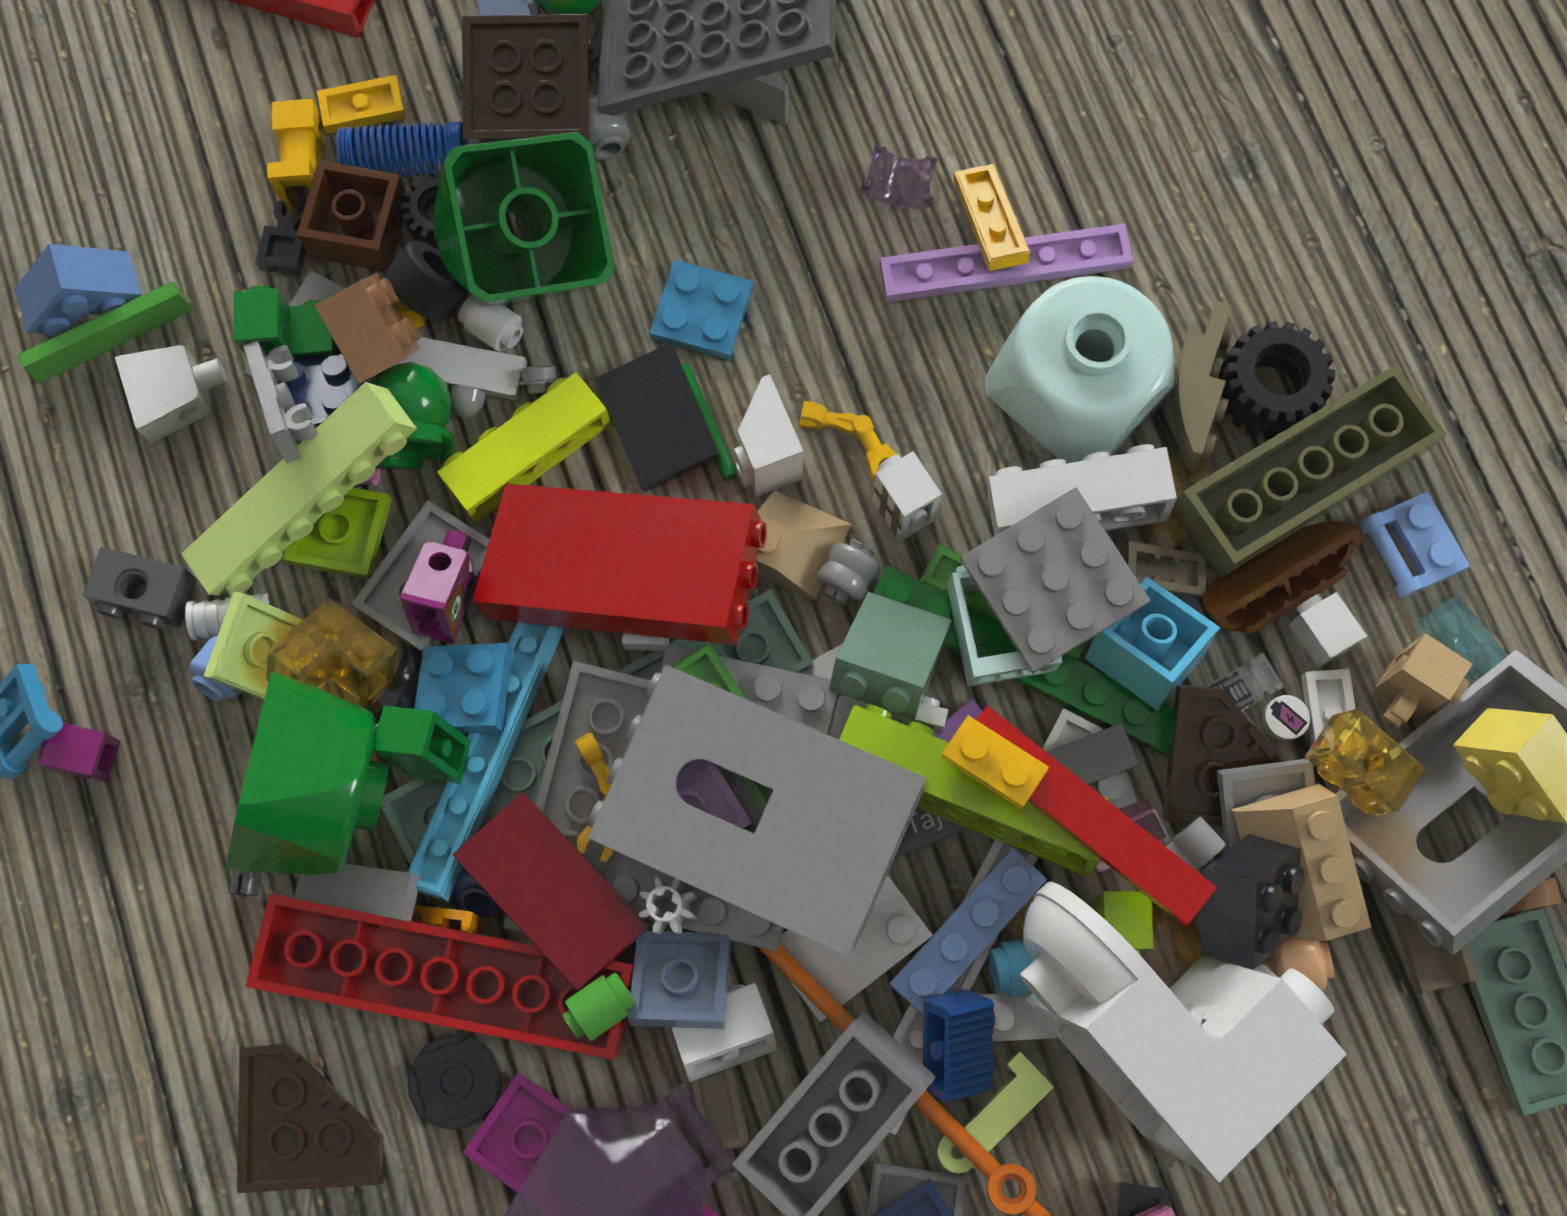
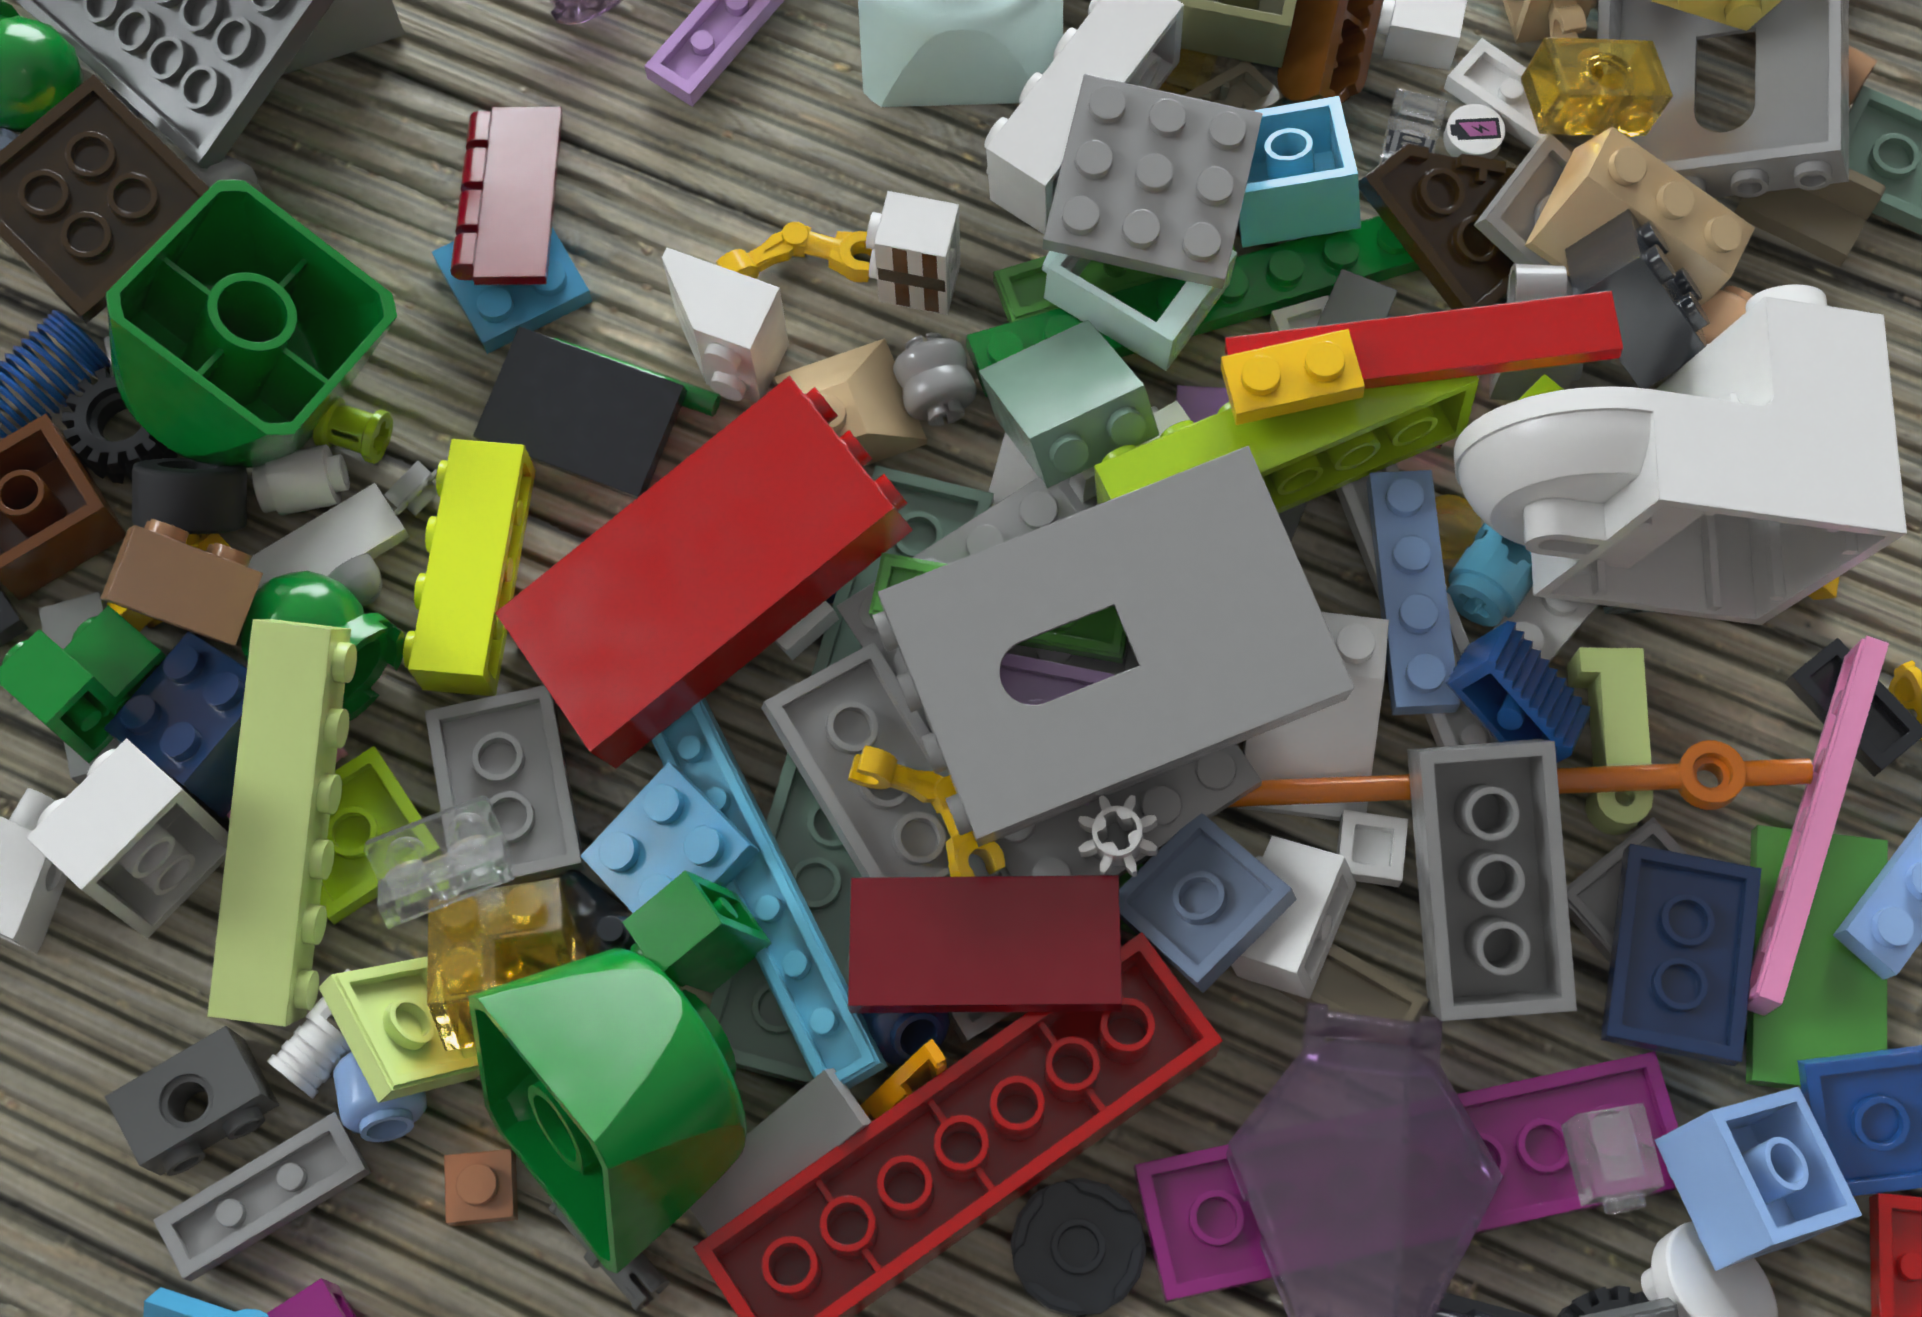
camera: 45 degrees left, 5 degrees down
(125, 664) = (261, 1197): none -> light grey plate
(219, 433) = (131, 839): none -> white brick
(222, 761) = (480, 1187): none -> nougat plate
(283, 418) = (164, 737): light grey plate -> none
(351, 586) = (439, 860): none -> clear bracket
(439, 588) = (542, 771): magenta torso -> none
(542, 320) = (355, 430): none -> lime bush
(598, 1006) = (1159, 996): bright green brick -> none
(739, 265) = (507, 196): none -> windscreen
(804, 1040) = (1373, 846): none -> white plate

